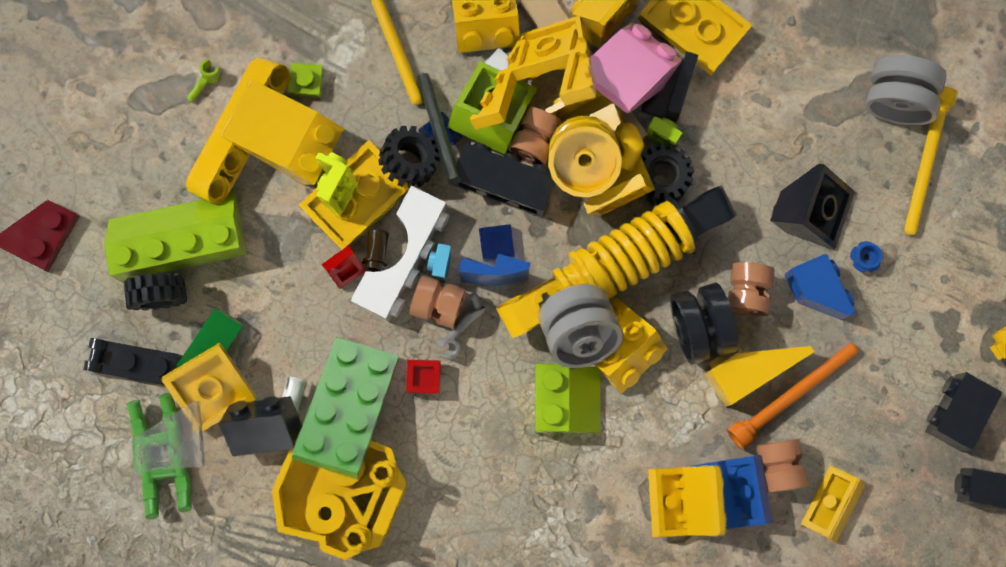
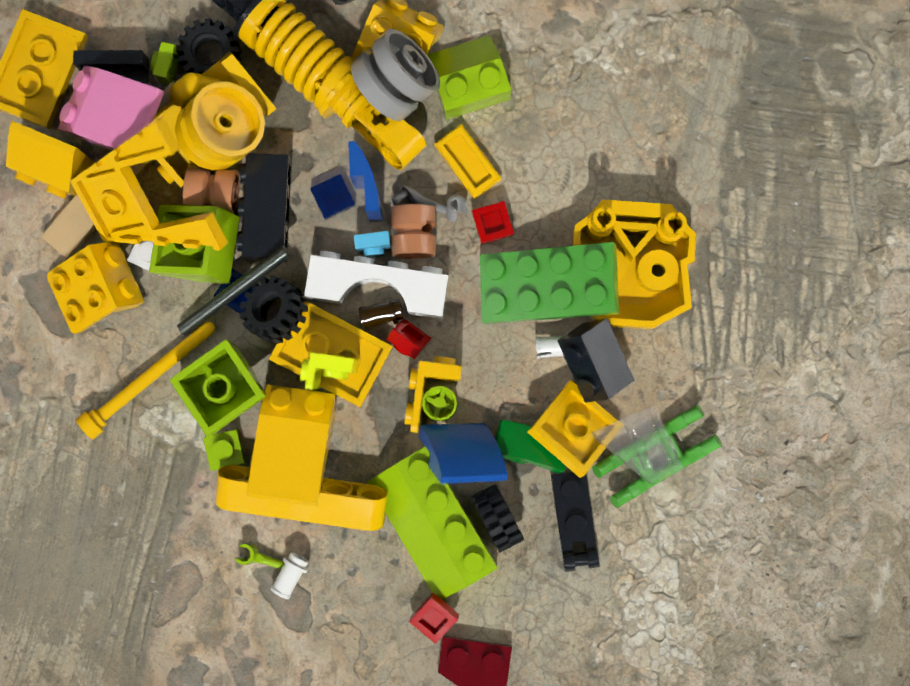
camera: 105 degrees left, 5 degrees up
(93, 210) = (434, 618): none -> plate
(183, 107) = (289, 575): none -> white pin
(220, 278) = (463, 453): none -> blue slope
(271, 272) = (439, 399): none -> lime wheel
(302, 281) = (442, 369): none -> yellow bracket
(355, 88) = (218, 387): none -> lime slope
(488, 373) = (467, 162): none -> yellow tile

